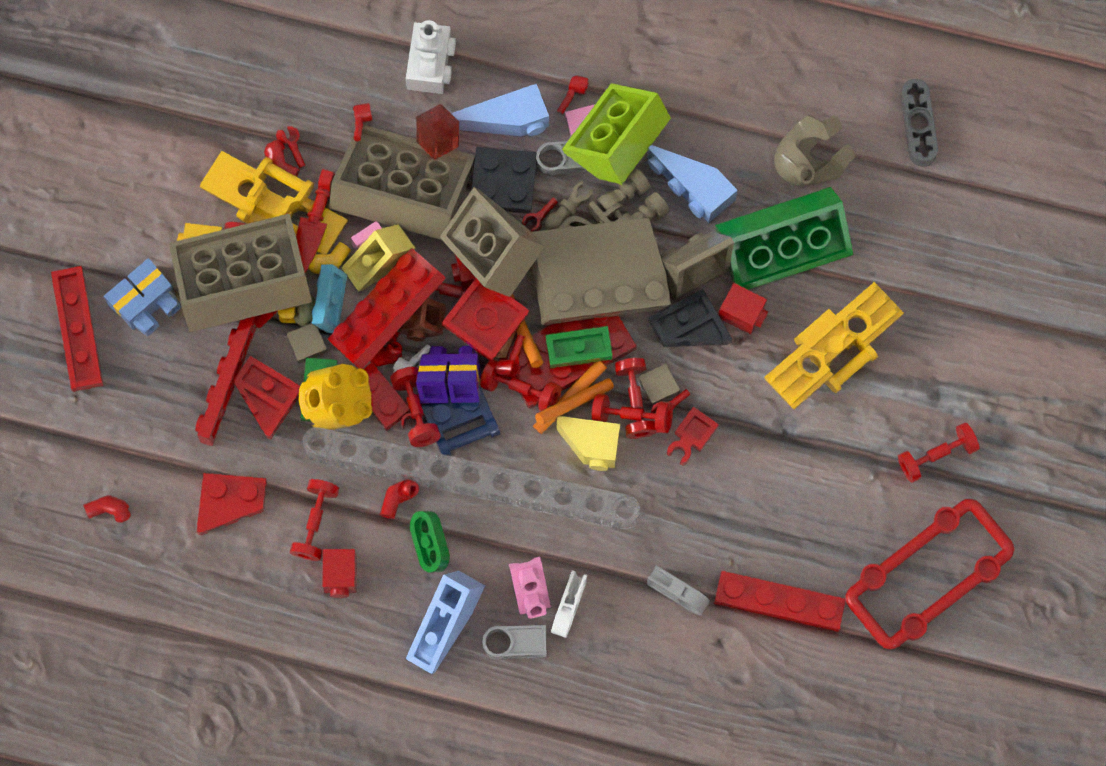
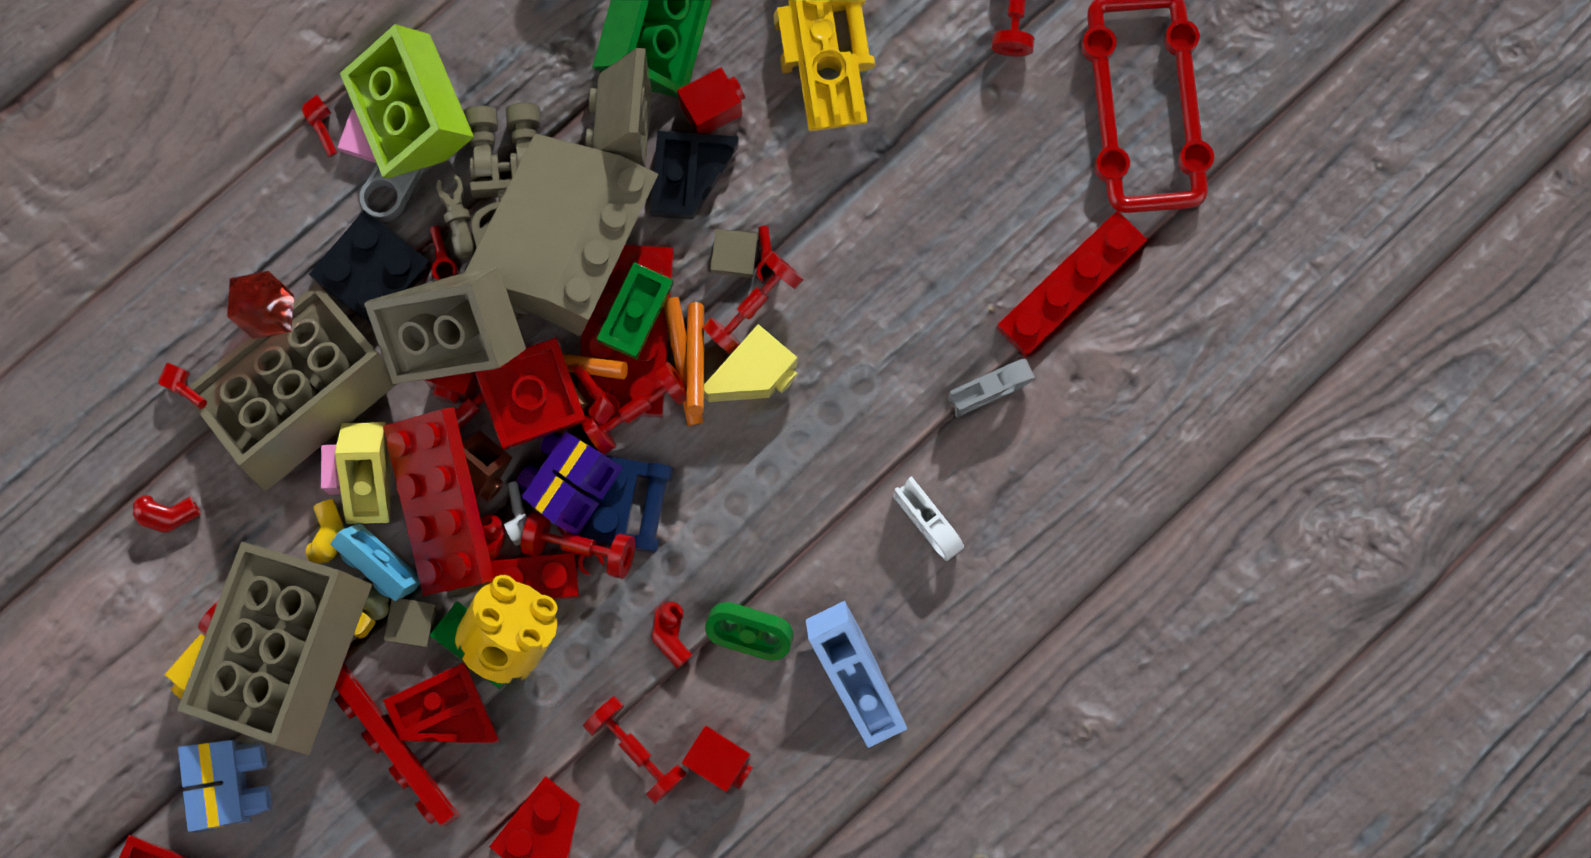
camera: 60 degrees left, 5 degrees up
(230, 173) = (205, 568): yellow piece -> none
(292, 143) = (149, 483): red hand -> none
(309, 230) = (277, 529): red sword -> none
(429, 57) = (160, 257): white brick -> none
(510, 114) = (296, 211): light blue slope -> none
(526, 642) = (936, 599): light grey piece -> none
(530, 588) = (883, 550): bright pink hips -> none
(630, 368) = (695, 270): red wheel -> none
(694, 432) = (818, 250): red plate -> none
(698, 183) = (530, 54): light blue slope -> none

